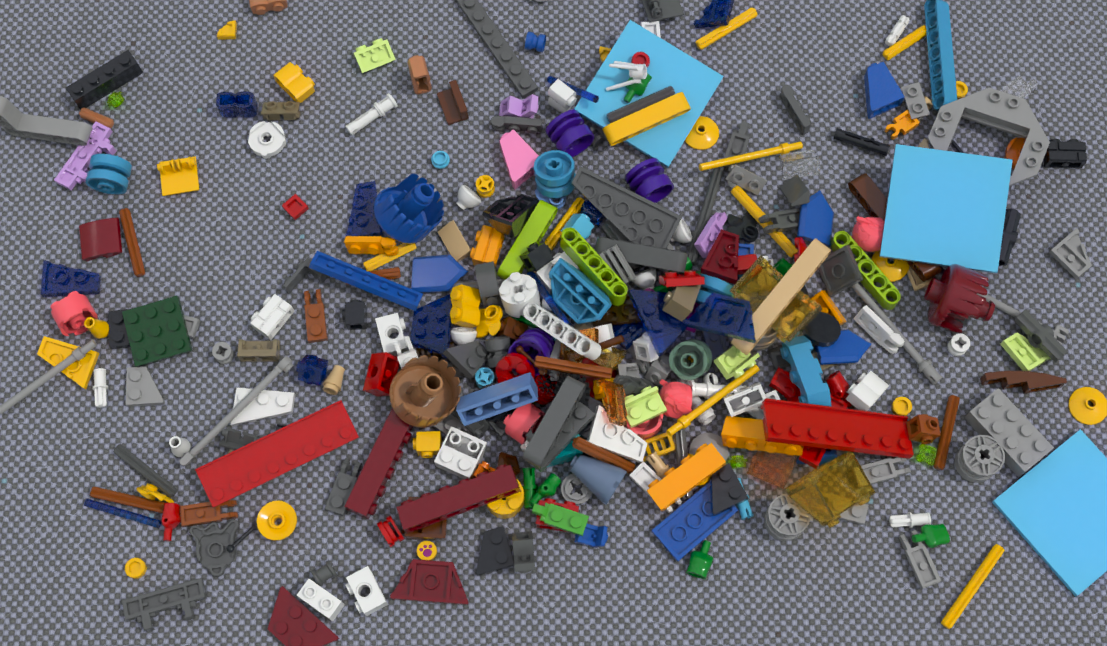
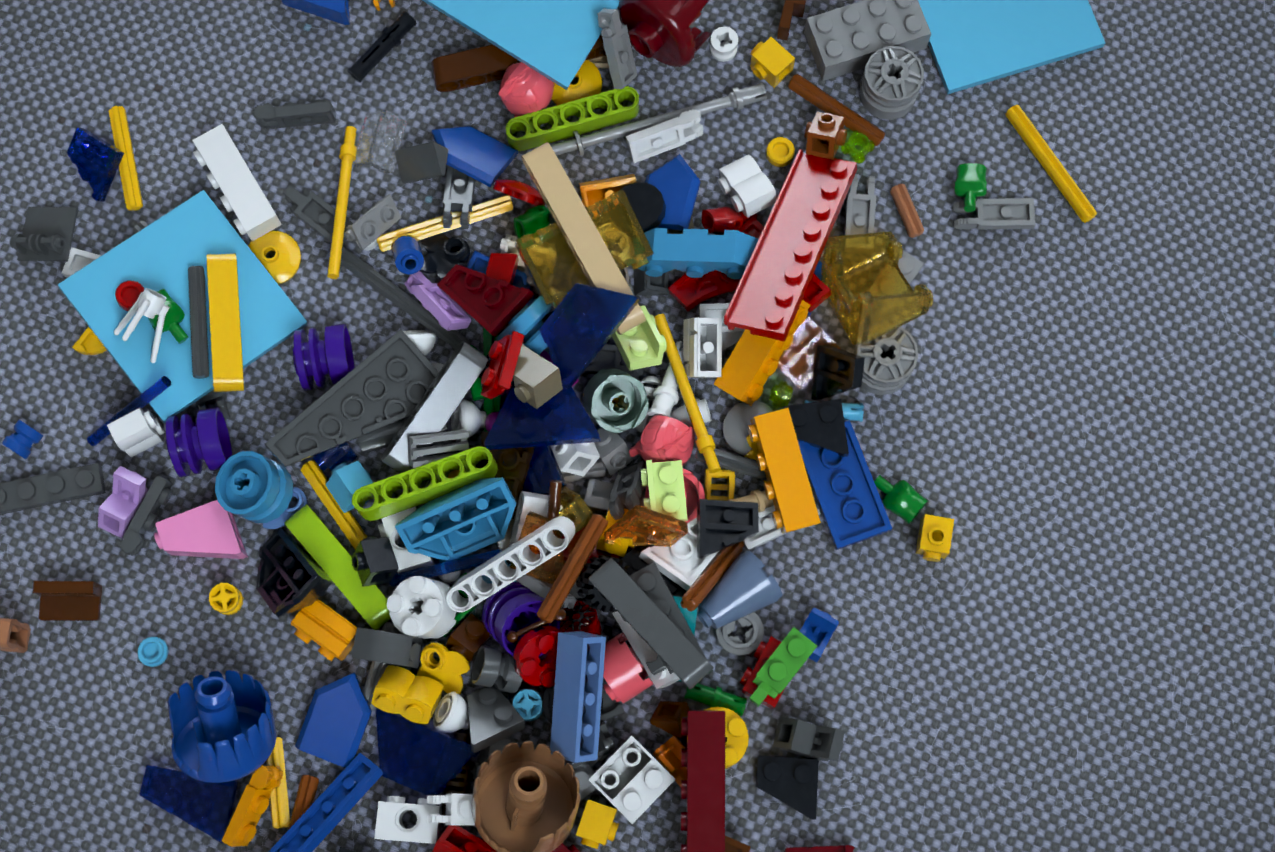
camera: 70 degrees left, 5 degrees up
(377, 110) = (28, 719): white pin -> none
(454, 241) = (295, 676): tan slope -> none
(467, 198) = (234, 631): white brick -> none
(546, 488) = (727, 674): green piece -> none
(636, 451) = (724, 524): none -> black wing
(682, 590) = (934, 537): none -> yellow brick
(733, 205) = (407, 255): none -> blue brick
(737, 93) = (236, 182): none -> white brick
(765, 487) = (835, 372): none -> black wing
(840, 271) = (570, 145): dark grey tile -> none
(897, 501) = (907, 210): none -> nougat axle
(910, 520) = (938, 204): white axle -> none
(919, 275) = (617, 48): none -> light grey hinge
(959, 378) = (771, 62): none -> yellow brick

